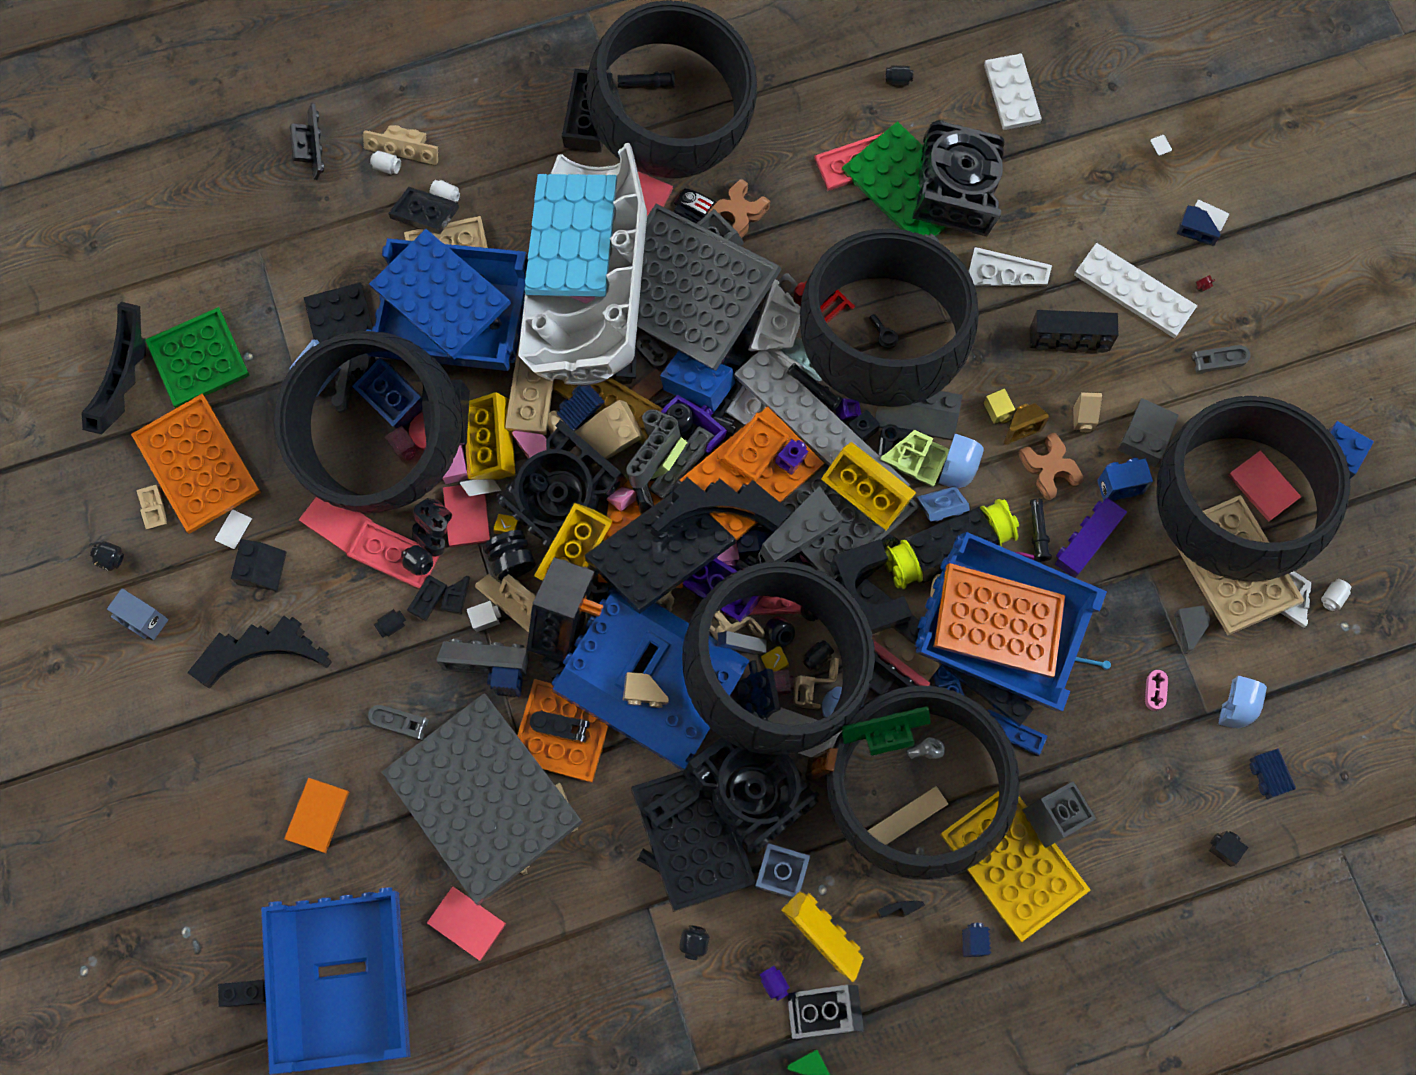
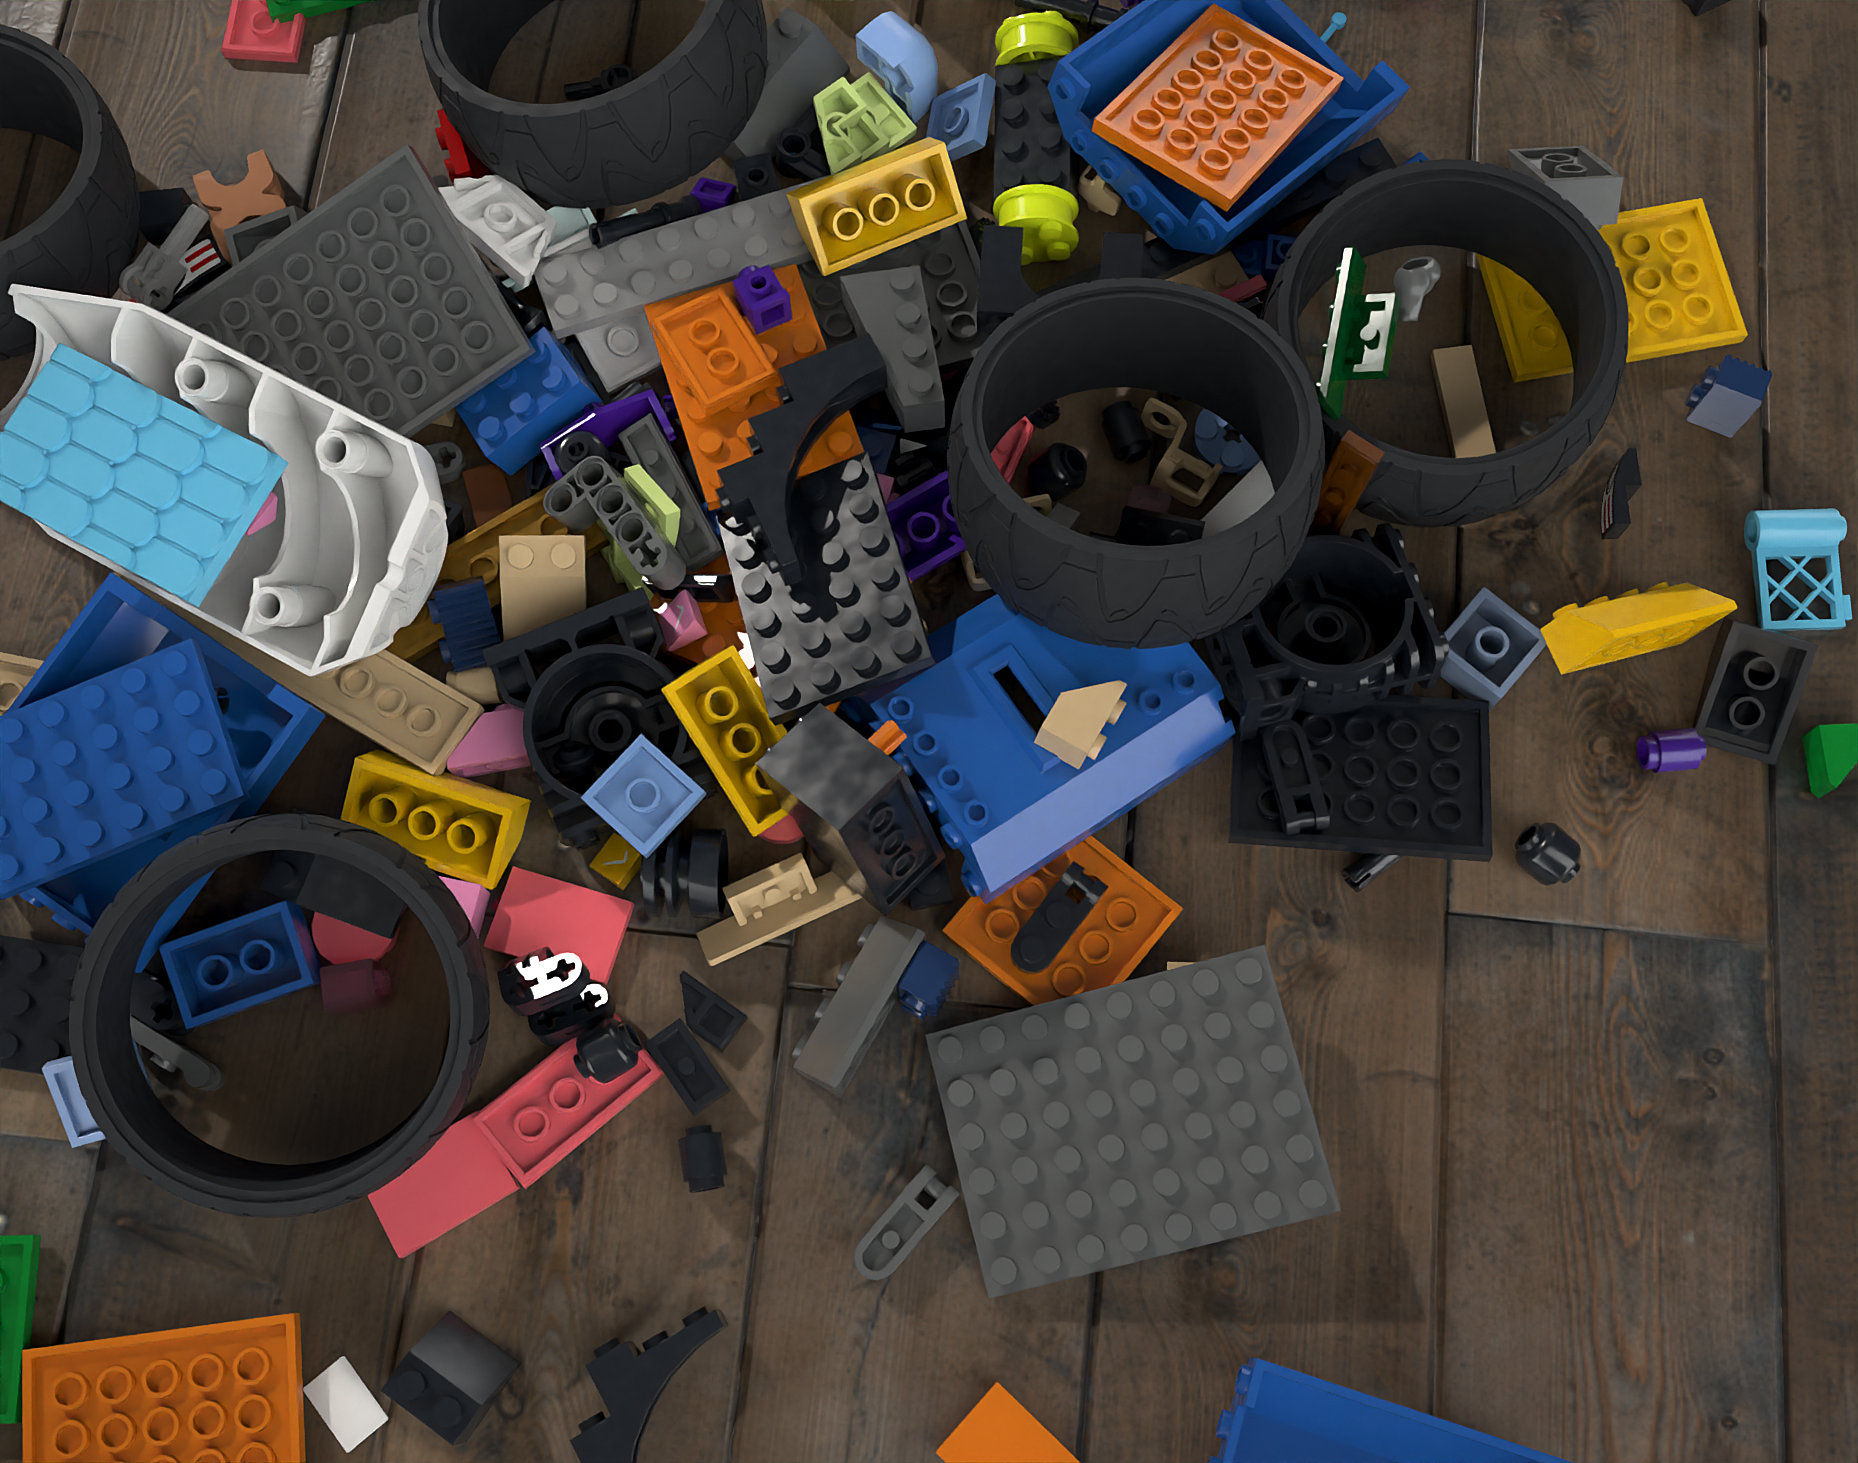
camera: 65 degrees left, 0 degrees up
(466, 923) = (1349, 1255): coral tile -> none
(478, 487) = (520, 874): white sticker -> none
(484, 616) = (778, 971): white brick -> none
(527, 519) = (643, 796): none -> medium blue plate
(689, 189) = (159, 268): none -> light grey connector
(717, 179) = (161, 212): none -> black brick
(775, 659) = (1100, 505): yellow slope -> none
(921, 1010) = (1801, 536): none -> medium azure piece

